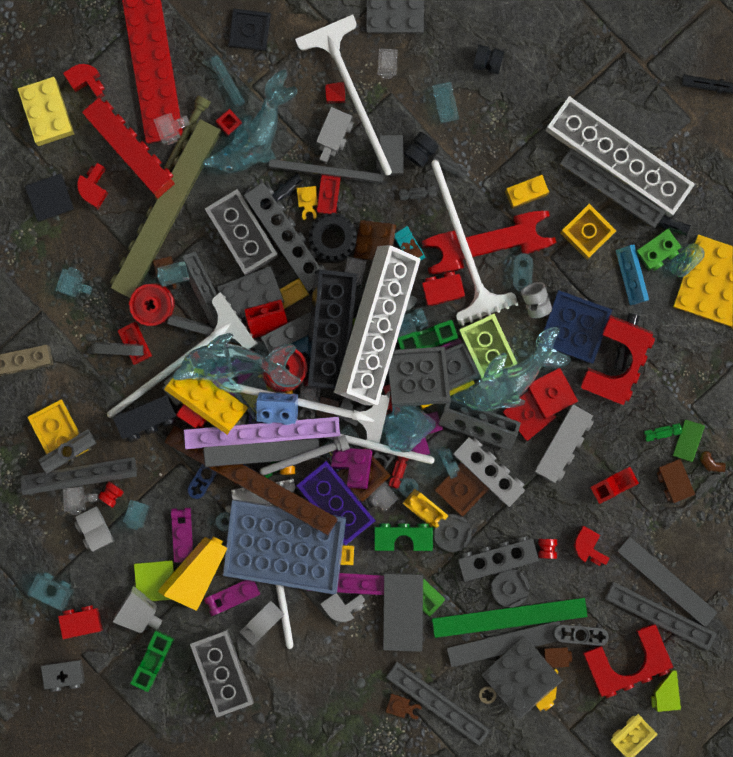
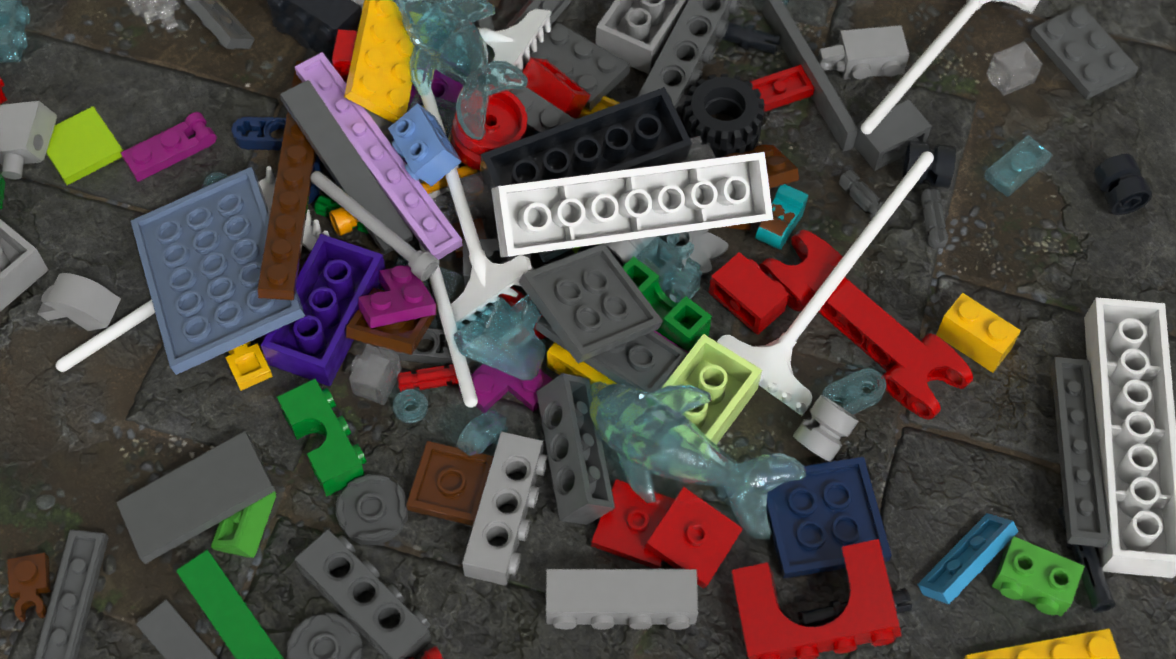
camera: 60 degrees right, 25 degrees down
(94, 529) = (121, 37): light grey brick -> none
(110, 494) = (183, 33): red wheel -> none
(136, 514) = (169, 72): clear light blue brick -> none
(195, 573) = (106, 179): yellow slope -> none
(232, 596) = (104, 252): magenta plate -> none
(307, 198) = (754, 67): yellow plate -> none
(335, 93) = (921, 33): red slope -> none
(338, 610) = (155, 401): light grey brick -> none
(360, 584) = (209, 404): magenta plate -> none
(424, 508) = (388, 439): yellow hinge -> none
(588, 231) = (986, 448): yellow brick -> none
(686, 260) = (1056, 631): clear light blue plate -> none

